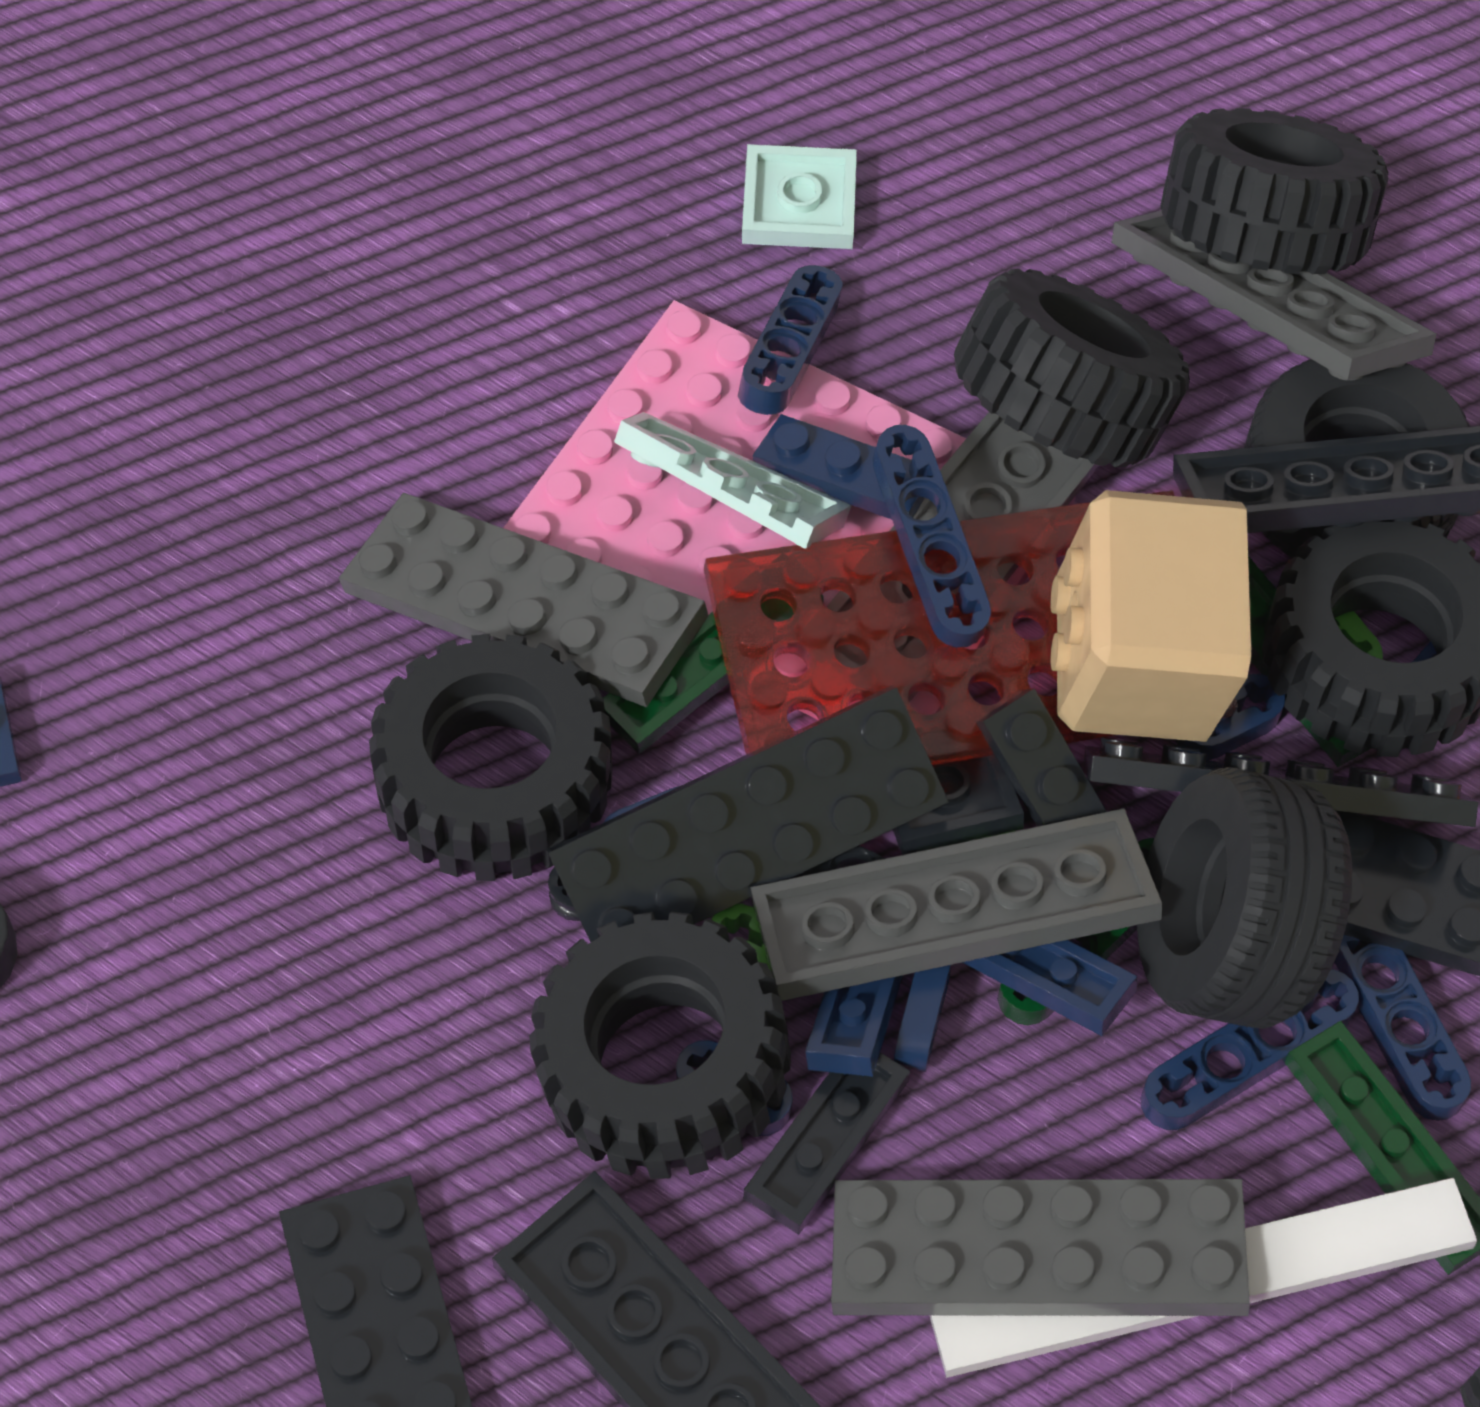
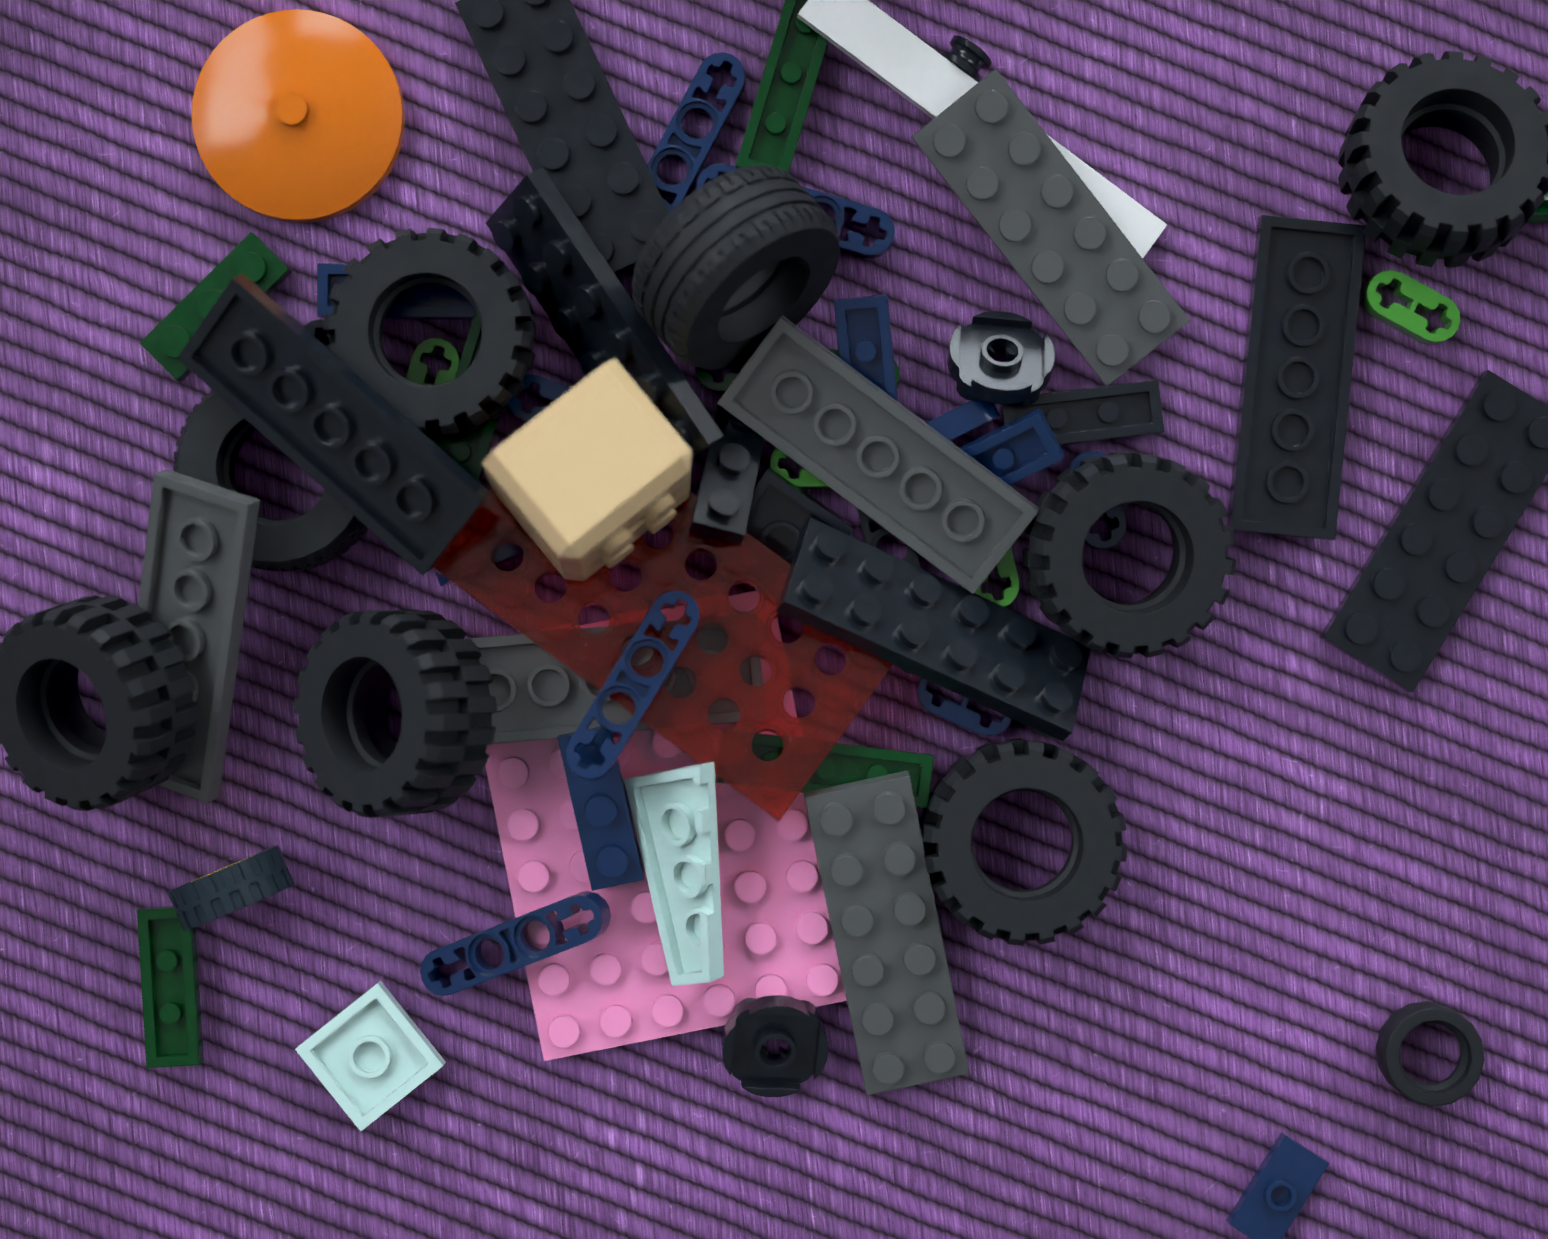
camera: 130 degrees left, 30 degrees up
(543, 447) = (769, 1019): none -> black plate
(915, 1087) = (998, 382): none -> black plate
(988, 116) = (169, 989): none -> dark green plate
(1029, 184) = (230, 888): none -> black wheel
(1279, 1314) = (967, 57): none -> black bush

